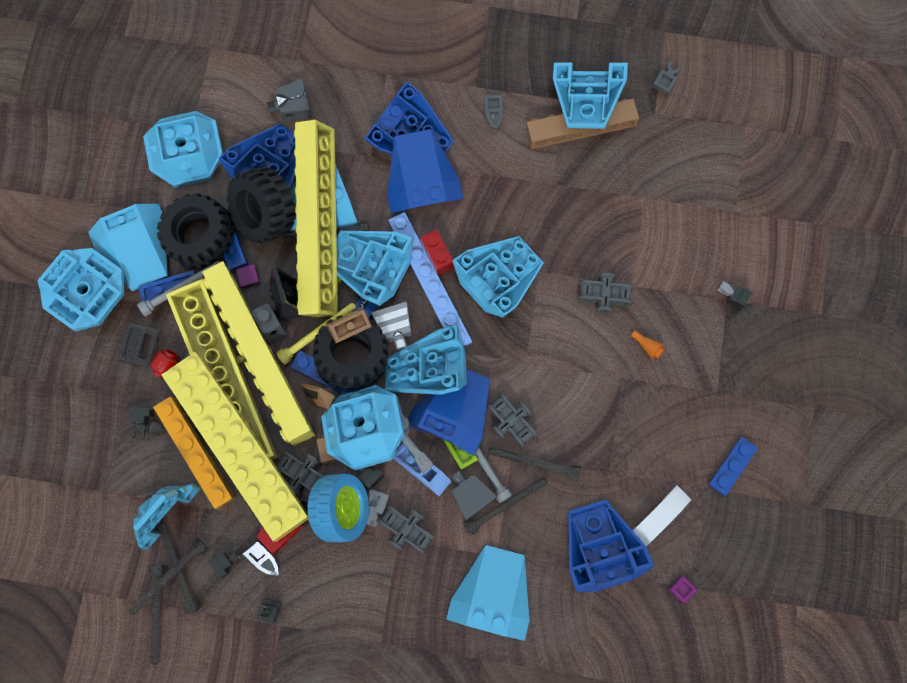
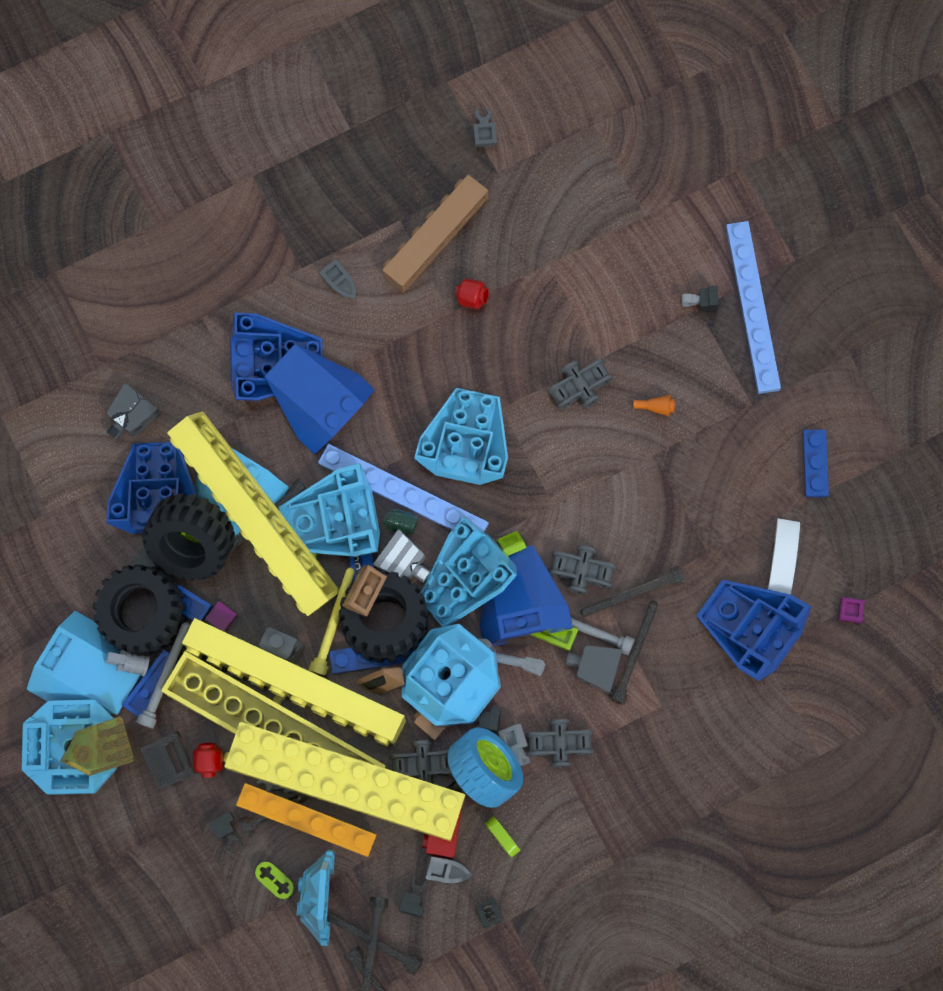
camera: 35 degrees left, 0 degrees up
(96, 302) = (99, 748): none -> clear yellow tile
(141, 478) = (268, 883): none -> lime beam
(162, 261) = (128, 662): none -> light grey hinge
(185, 164) = (73, 552): medium azure piece -> none
(284, 294) = (277, 608): black slope -> none
(317, 564) = (502, 836): none -> lime beam
(413, 298) = (400, 521): none -> brick
(432, 478) = (552, 679): light blue slope -> none
(437, 252) = (391, 460): red brick -> none
(476, 367) = (511, 543): none -> lime tile
(494, 595) = (684, 742): medium azure wedge -> none
(576, 180) = (472, 293): none -> red head
(588, 96) = (423, 200): medium azure wedge -> none
(767, 326) = (753, 307): none -> light blue plate

